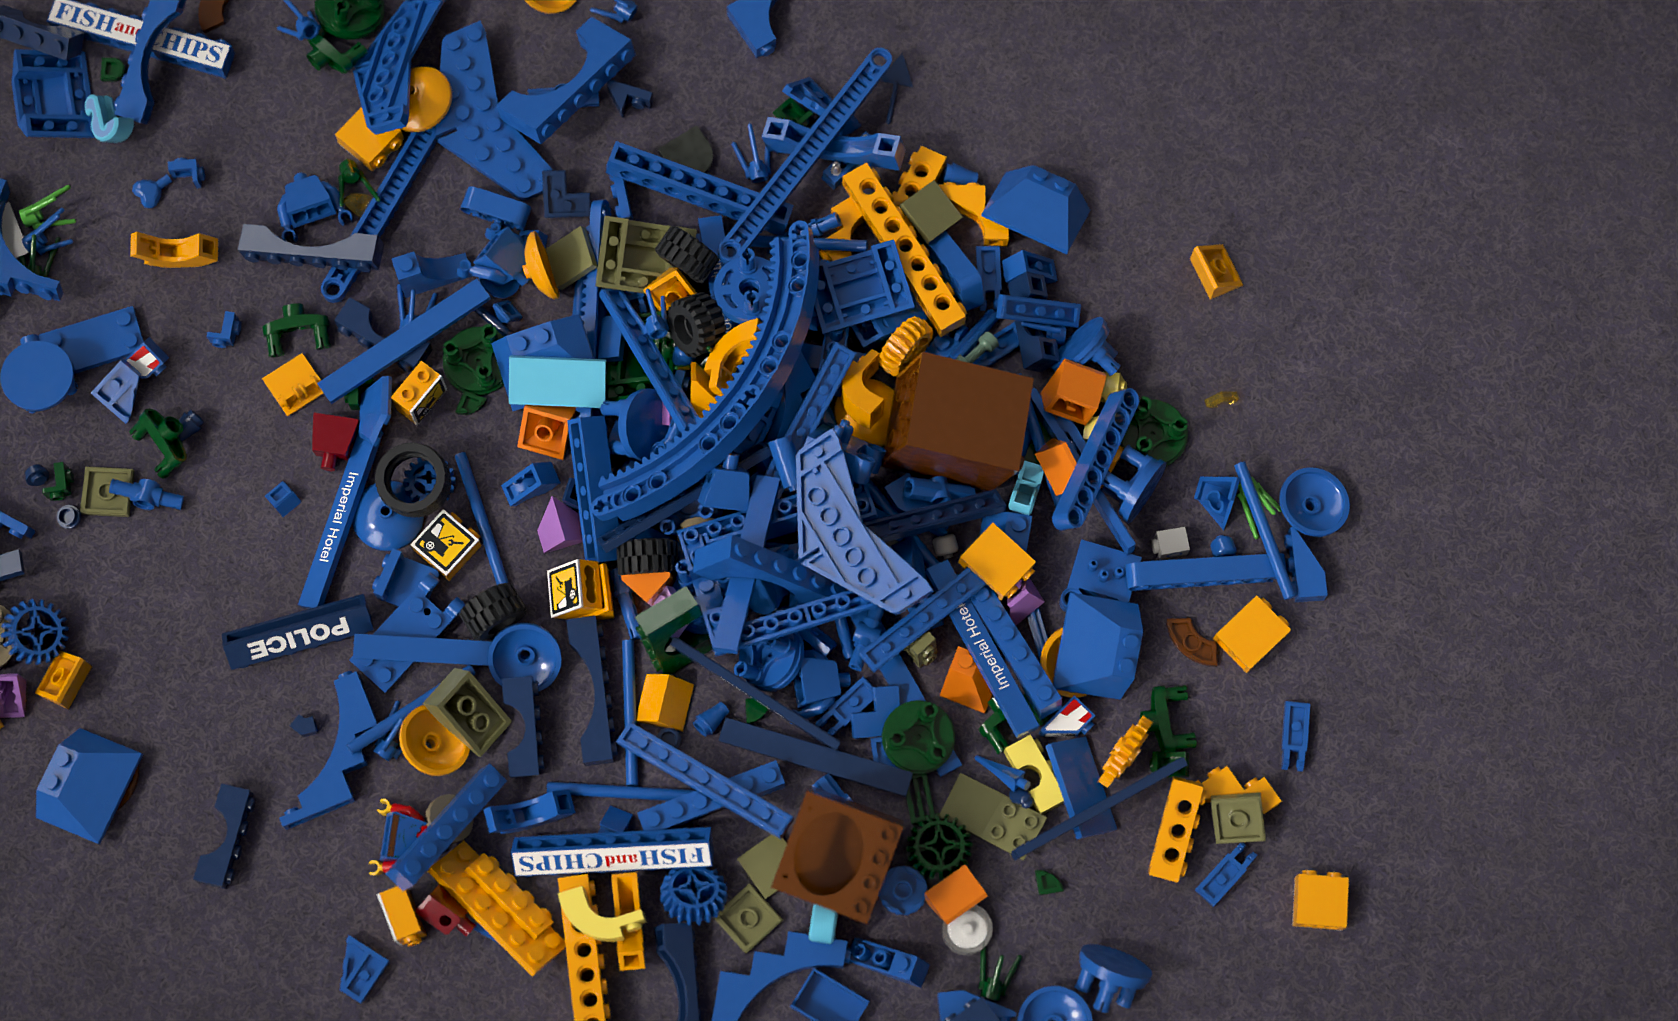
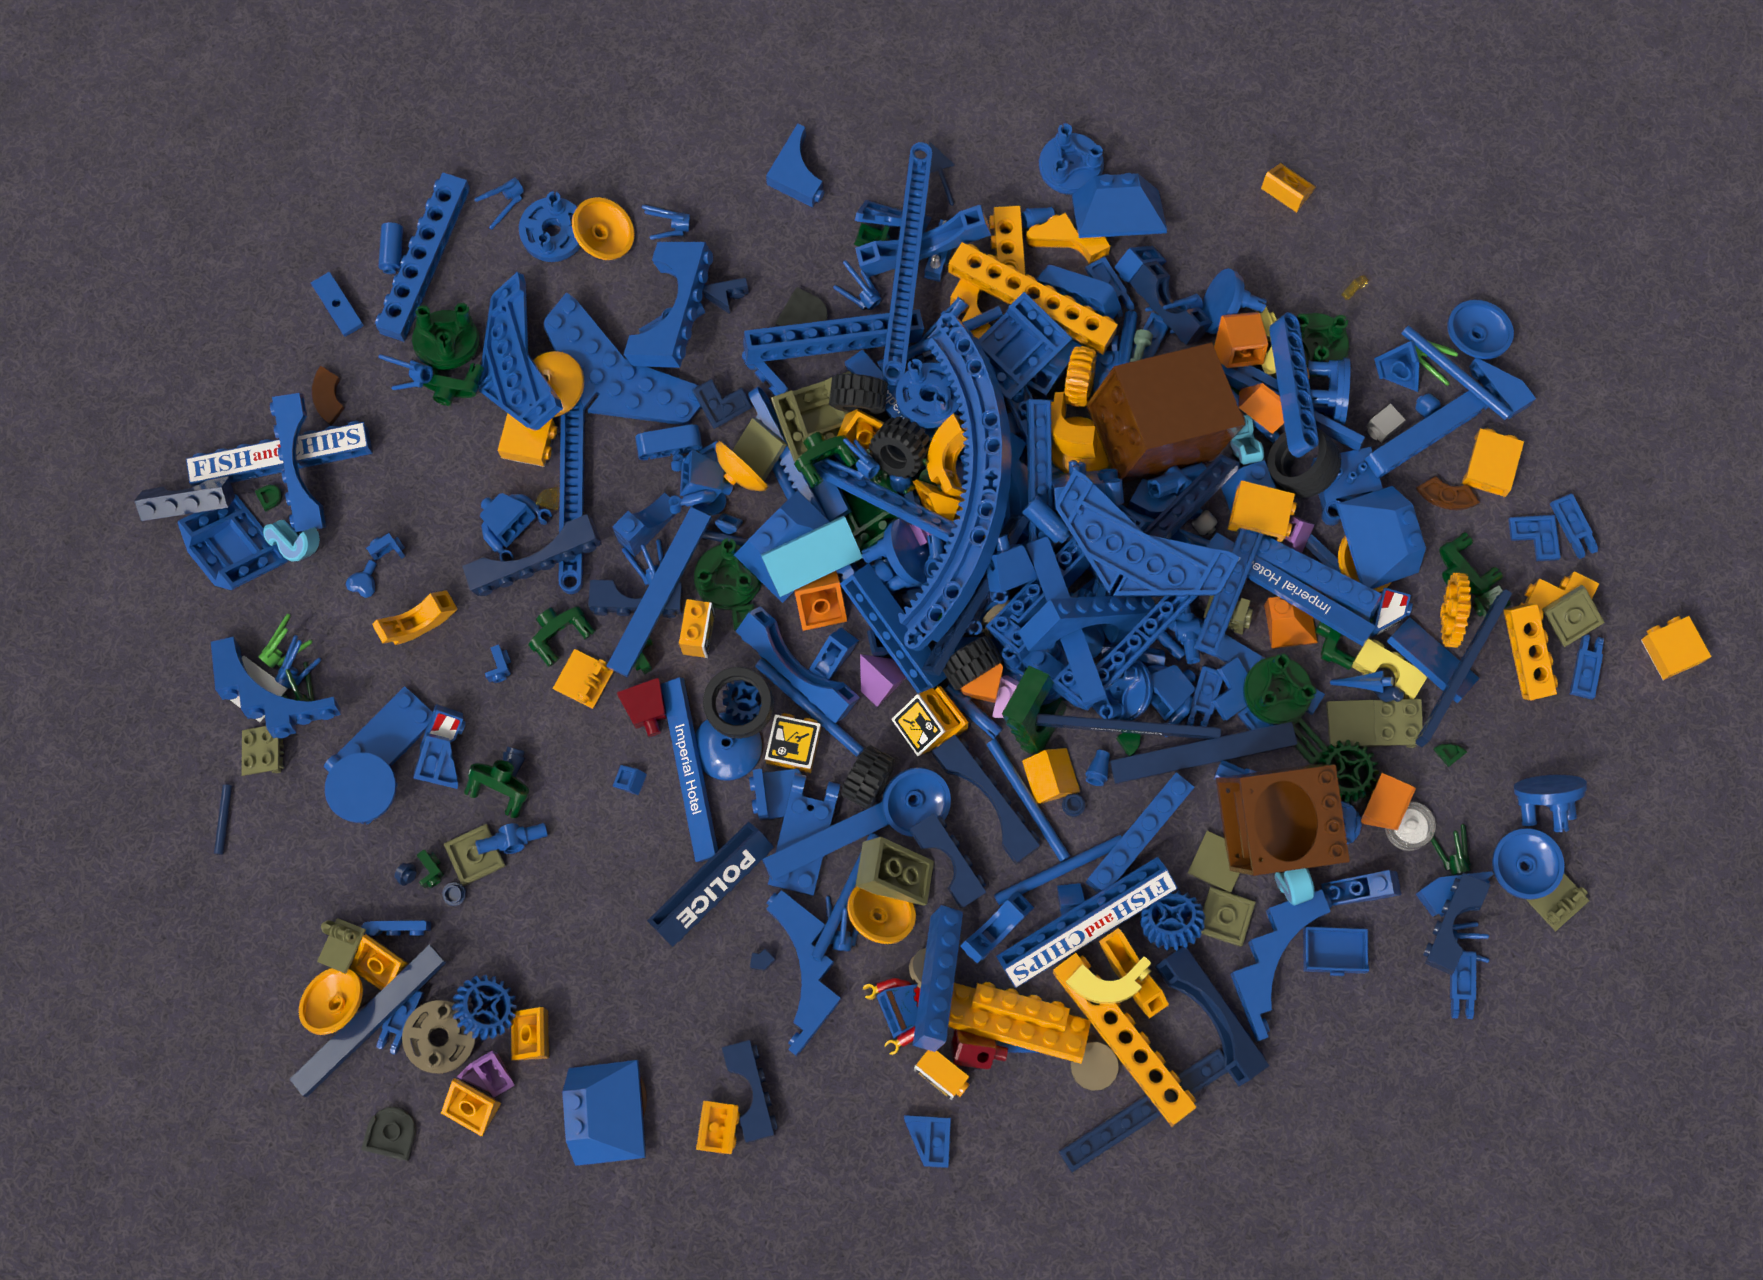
camera: 25 degrees left, 0 degrees up
(178, 853) = (718, 1127): none -> light orange bracket
(350, 173) = (529, 477): dark green plant -> none
(375, 409) = (669, 662): blue tile -> none
(477, 432) = (762, 633): none -> blue arch
(547, 989) = (1097, 1067): none -> dark tan tile
(612, 430) = (883, 570): none -> blue piece
(621, 287) = (819, 449): none -> dark green connector
(705, 780) = (1129, 820): blue tile -> none
(930, 211) = (1035, 256): olive tile -> none
(1022, 139) = (1070, 161): none -> blue piece
(1038, 311) = (1170, 291): blue tile -> none
(1074, 555) = (1314, 480): none -> black tyre
(1261, 724) = (1541, 530): none -> blue tile

